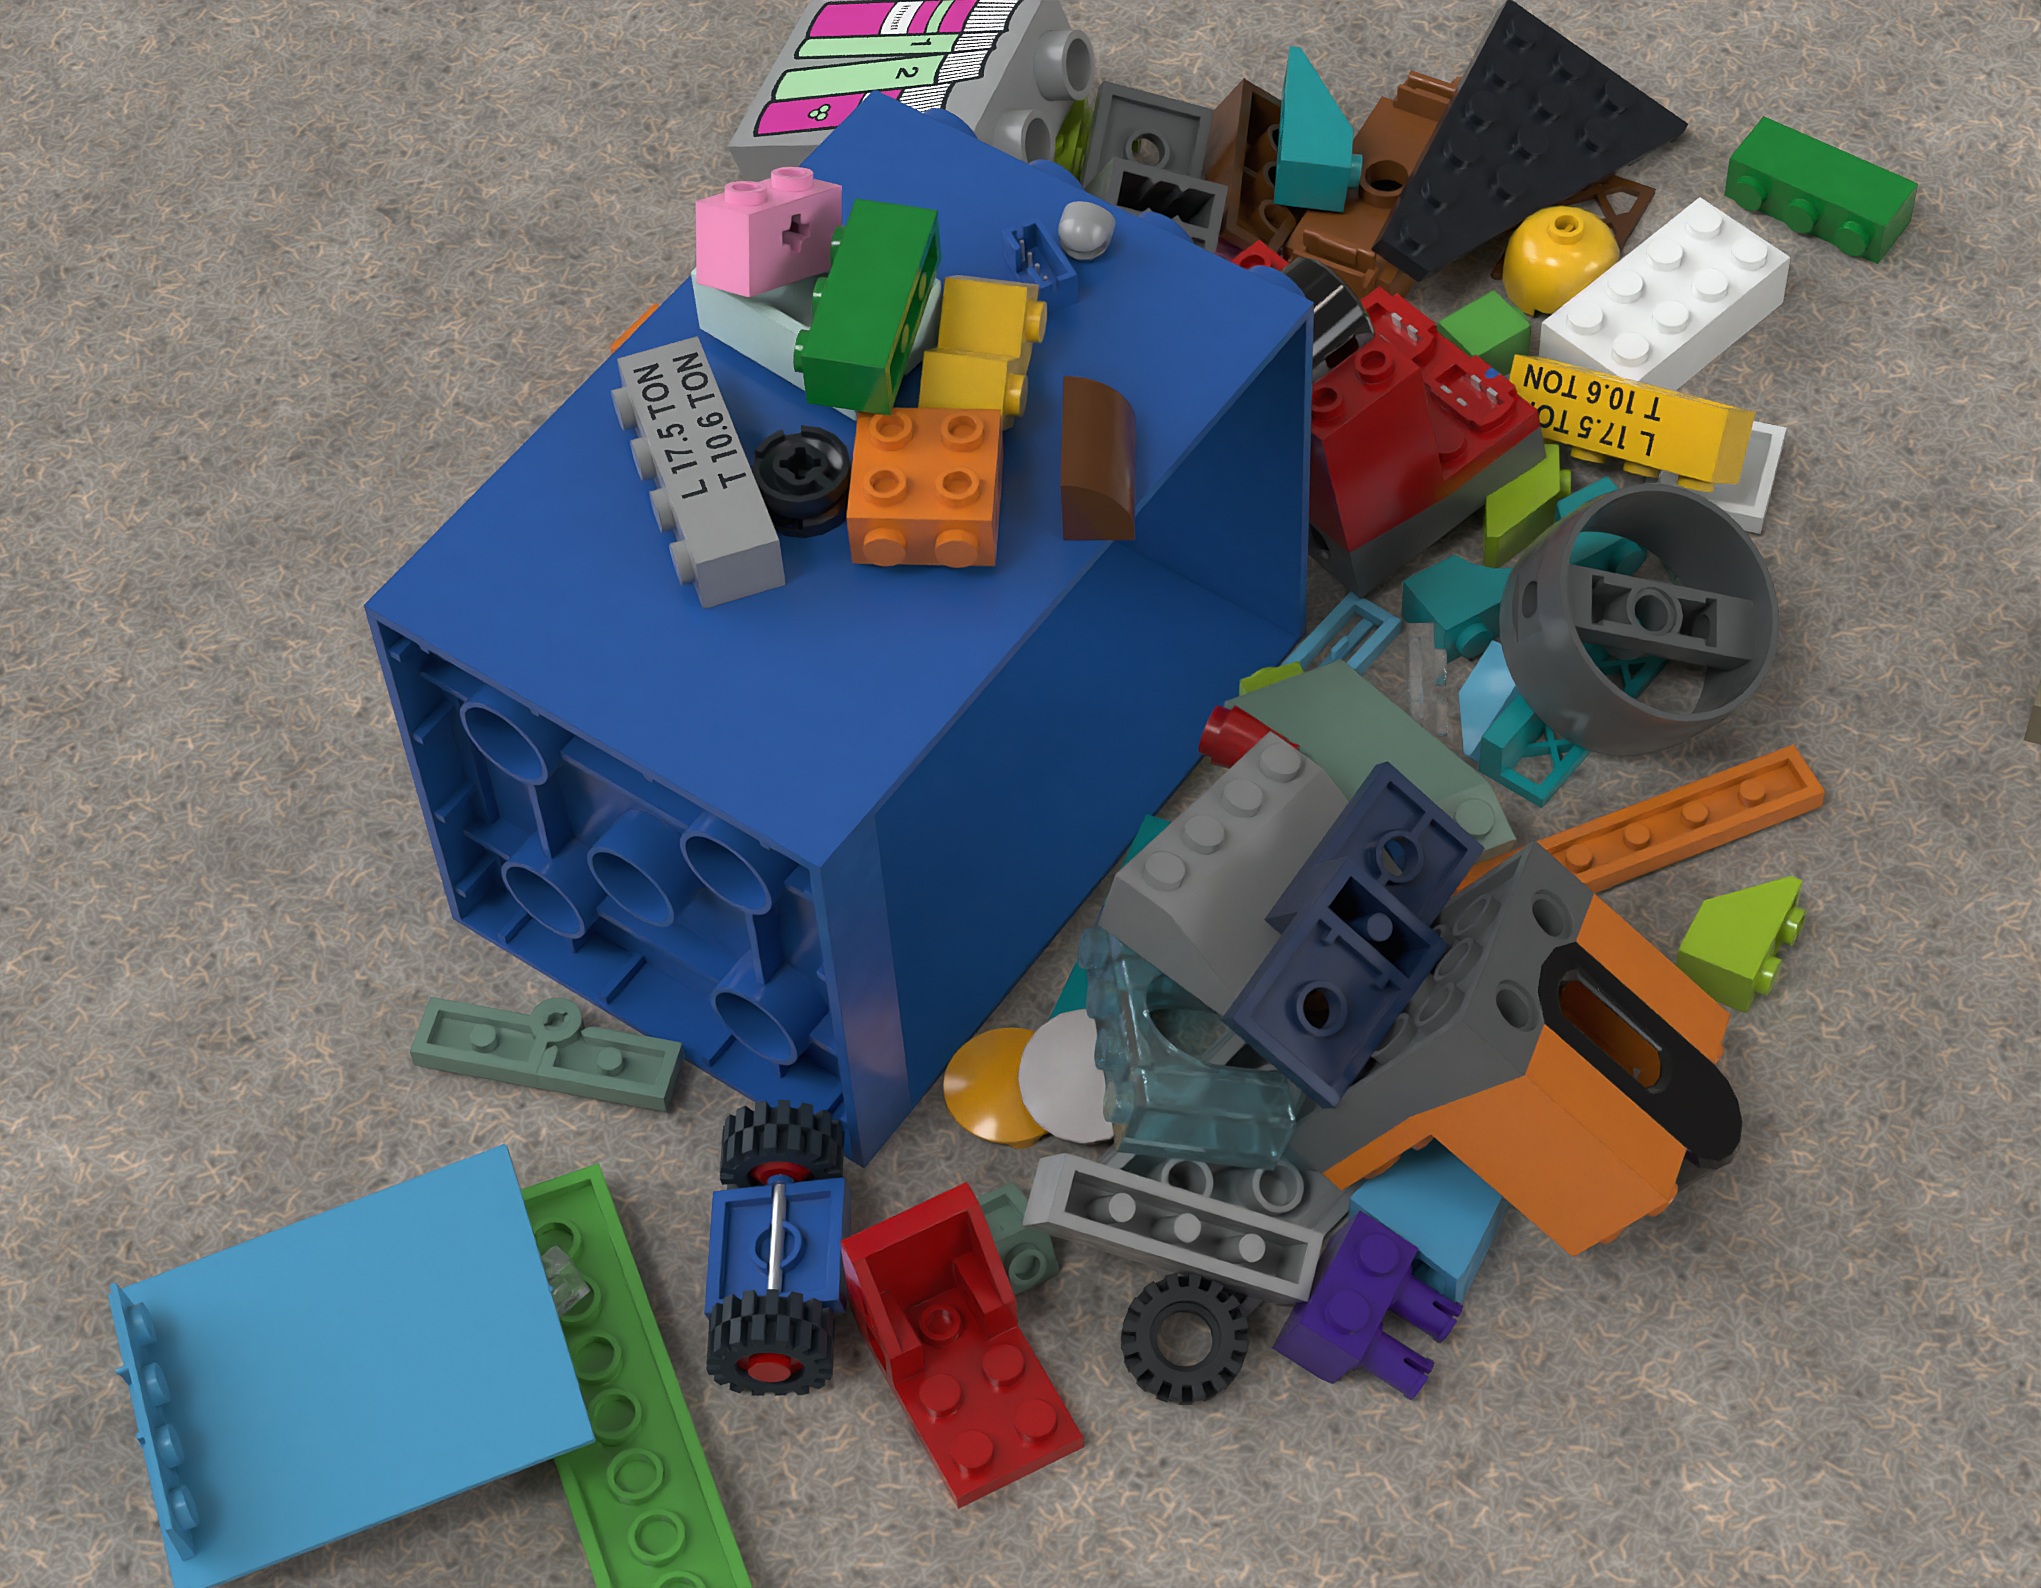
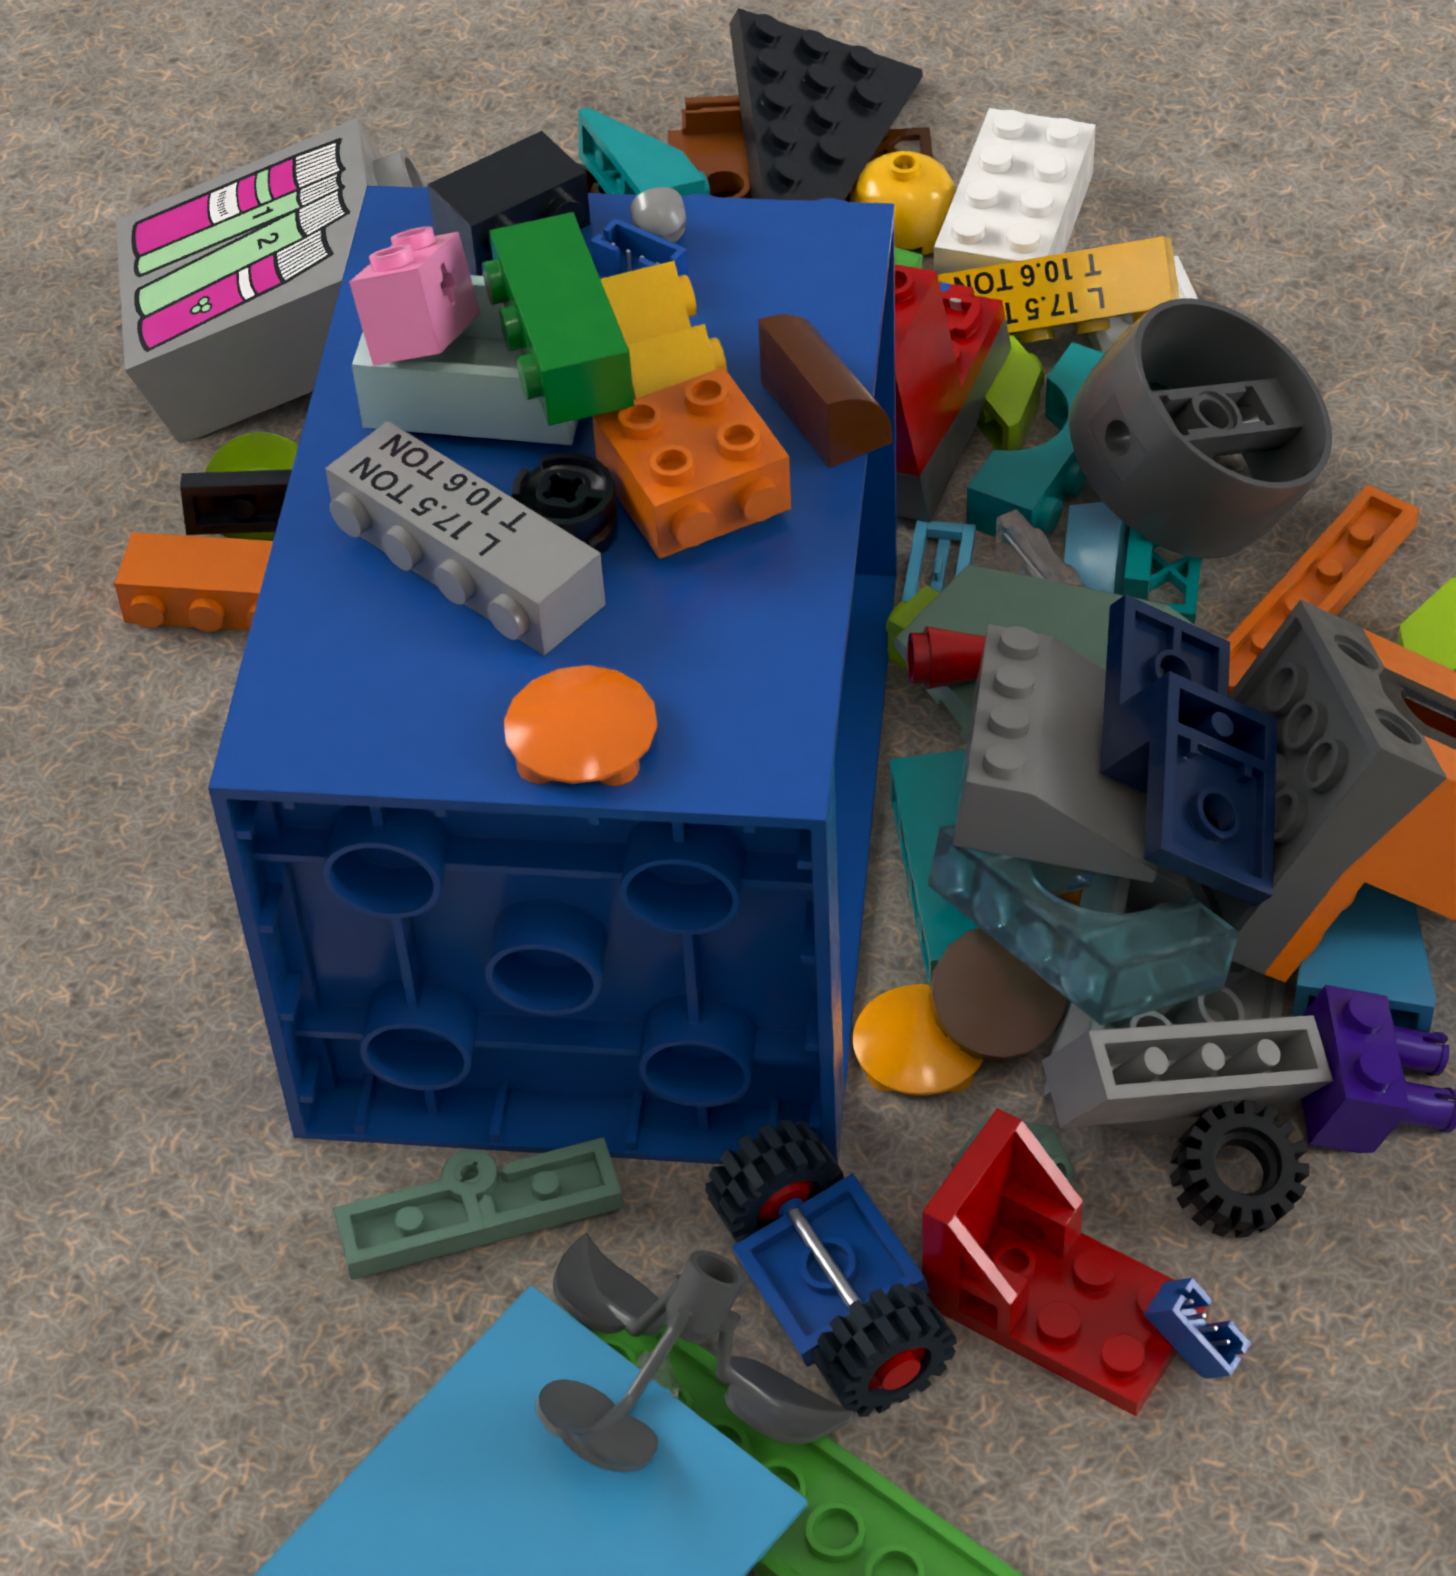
camera: 30 degrees left, 5 degrees down
(574, 1179) = (693, 1309): none -> dark grey plant
(678, 689) = (580, 727): none -> orange dish
(965, 161) = (508, 189): none -> black brick
(1050, 1476) = (1206, 1347): none -> blue piece
(1820, 190) = (1068, 75): green brick -> none

